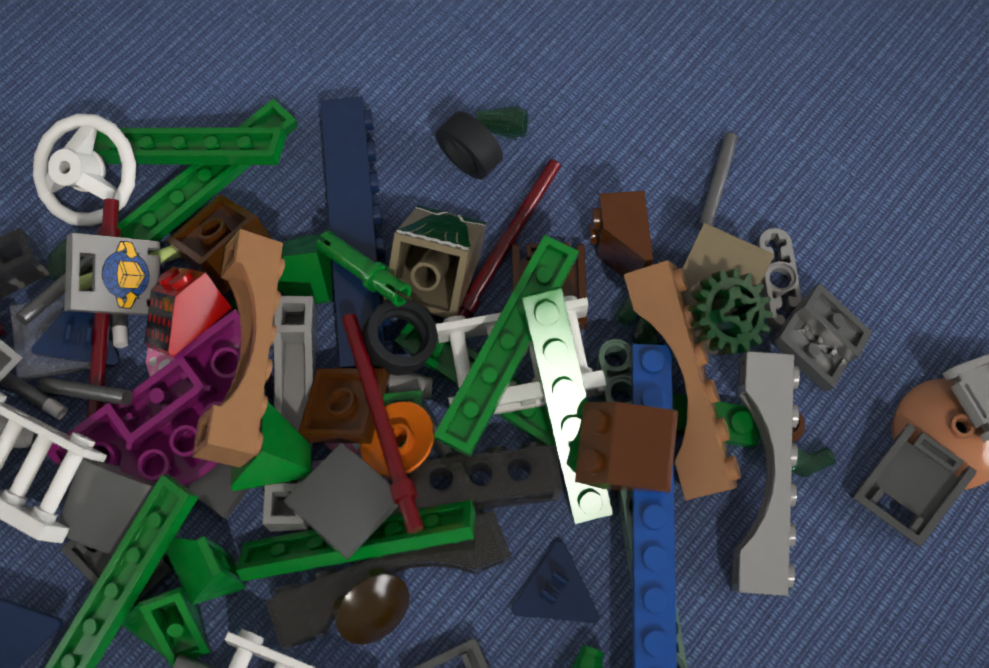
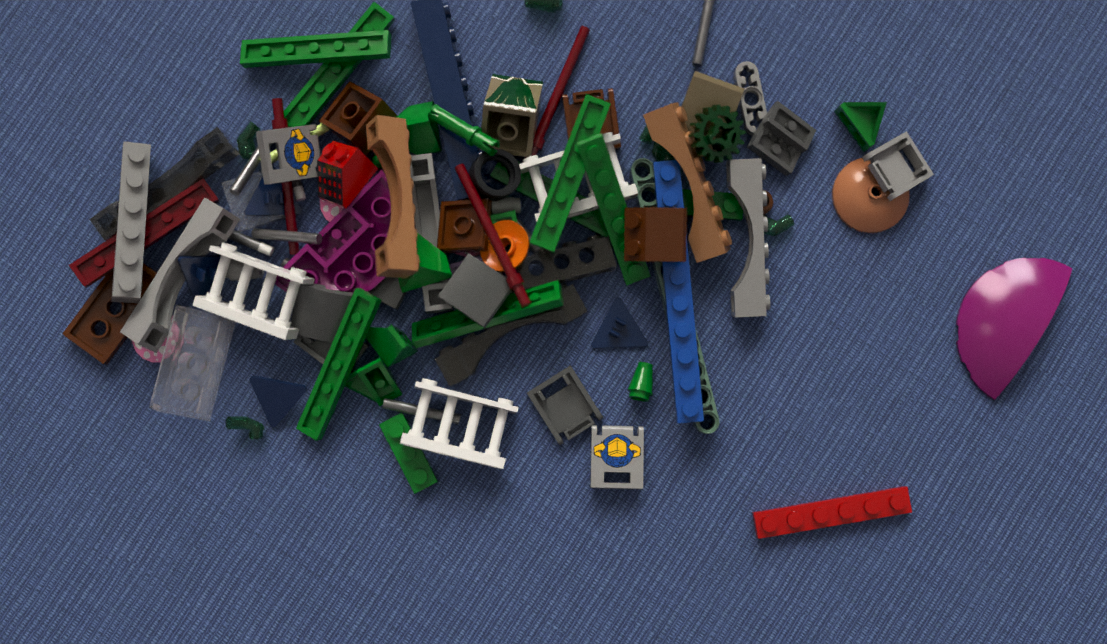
camera: 10 degrees left, 15 degrees up
(81, 166) = (248, 74): white piece -> none
(371, 607) = (502, 354): dark brown dish -> none
(469, 145) = (523, 24): black tyre -> none
(621, 231) = (639, 81): reddish brown slope -> none
(917, 478) = (848, 229): dark grey container -> none
(942, 324) = (862, 120): none -> green slope

